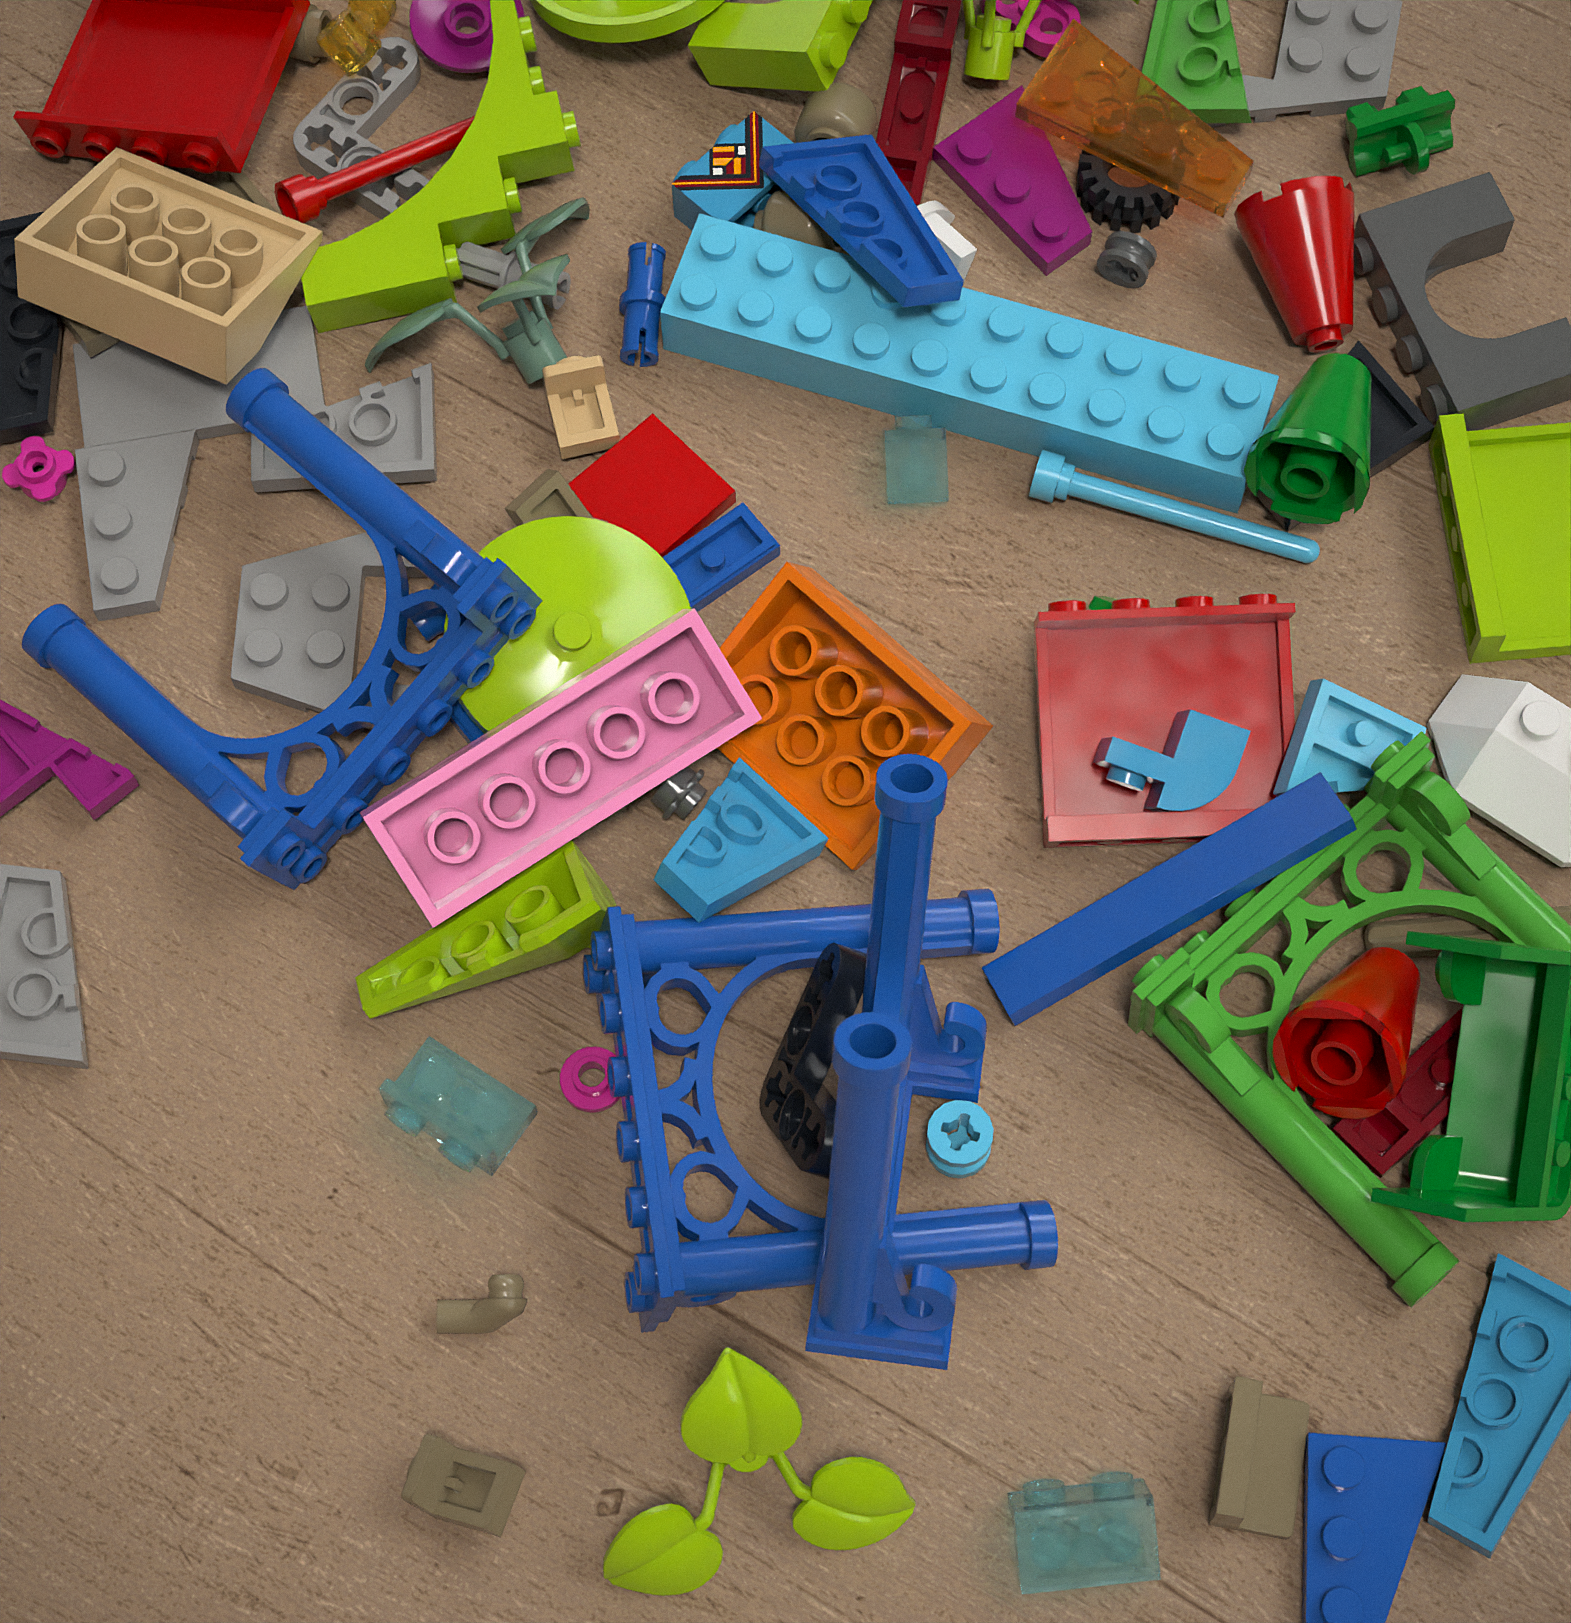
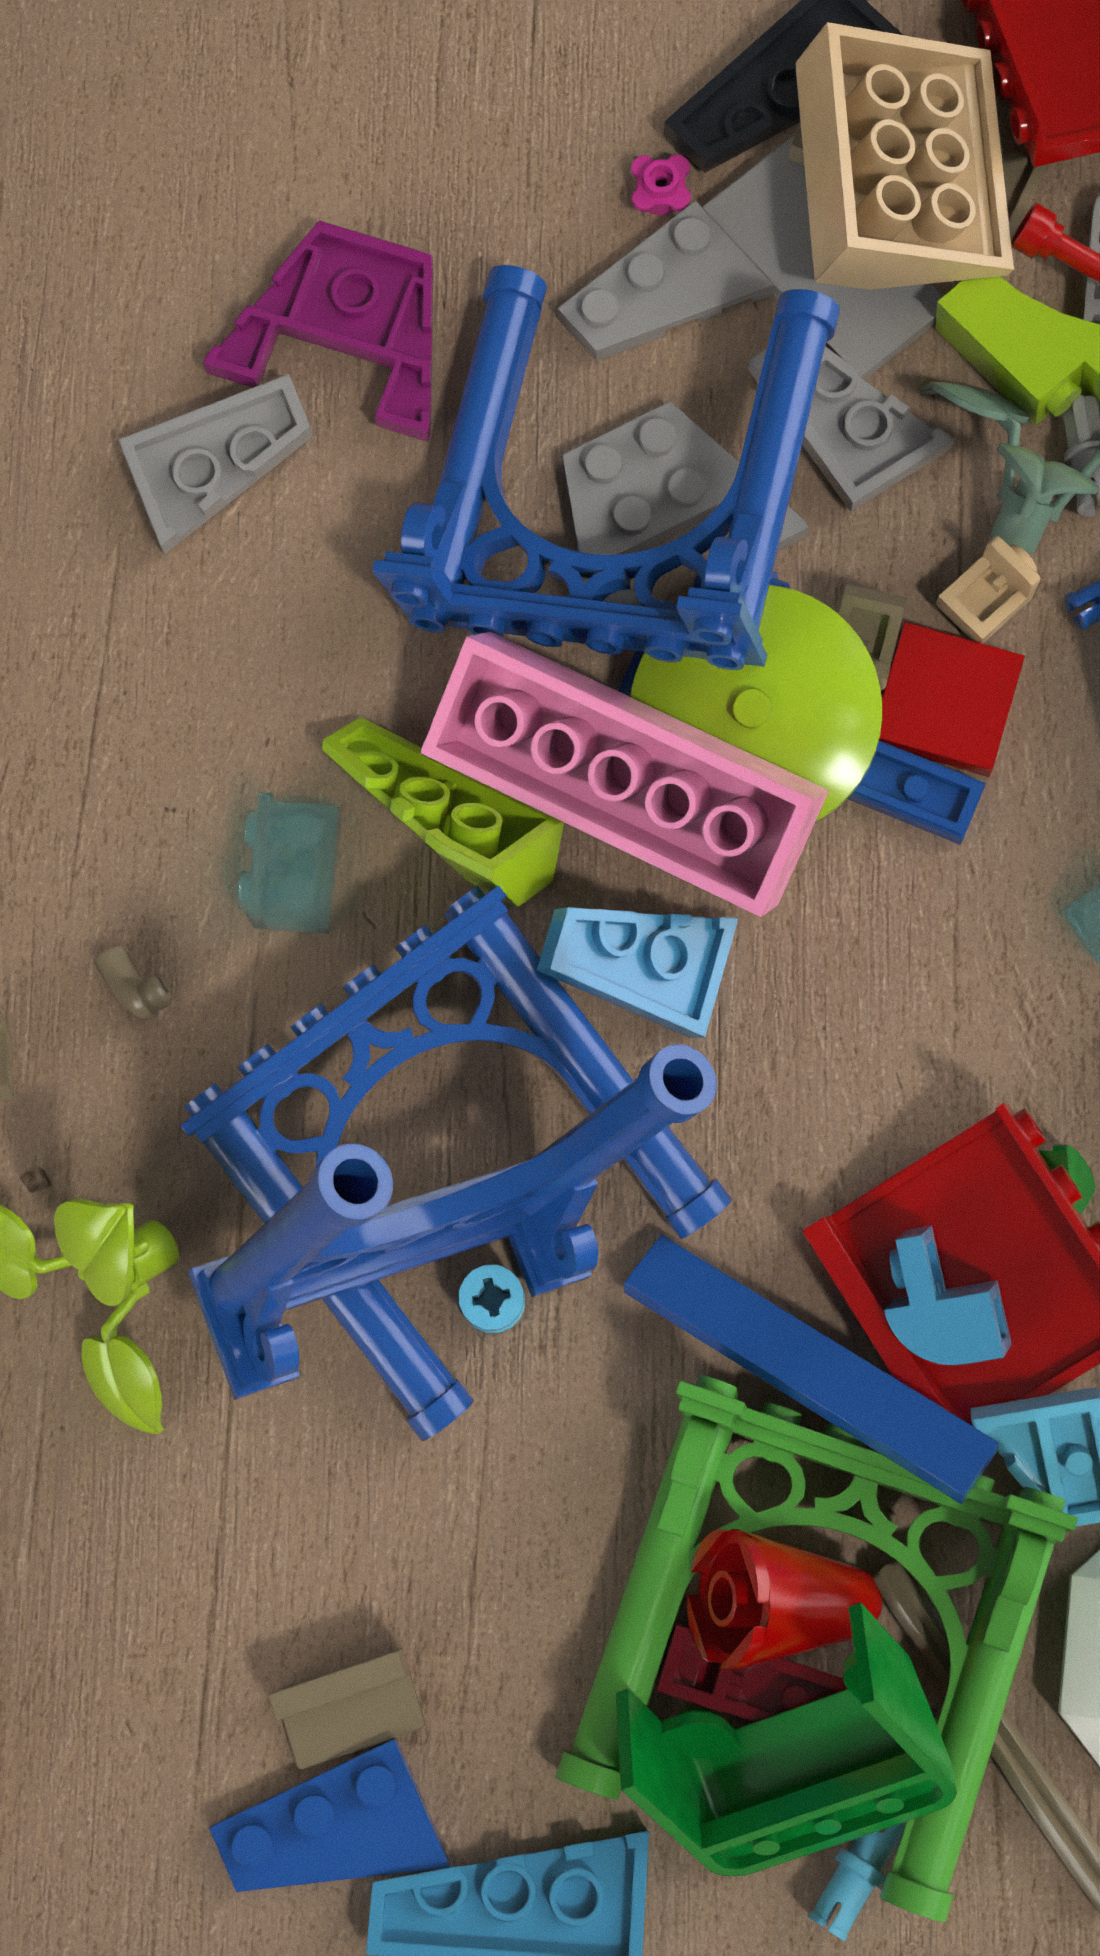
camera: 65 degrees right, 10 degrees up
(582, 1096) = (369, 942): dark pink plate -> none
(680, 793) = (672, 890): dark grey plate -> none
(793, 1092) = (475, 1128): black beam -> none
(837, 706) = (831, 981): orange slope -> none
(1084, 1533) = (205, 1587): clear light blue bracket -> none

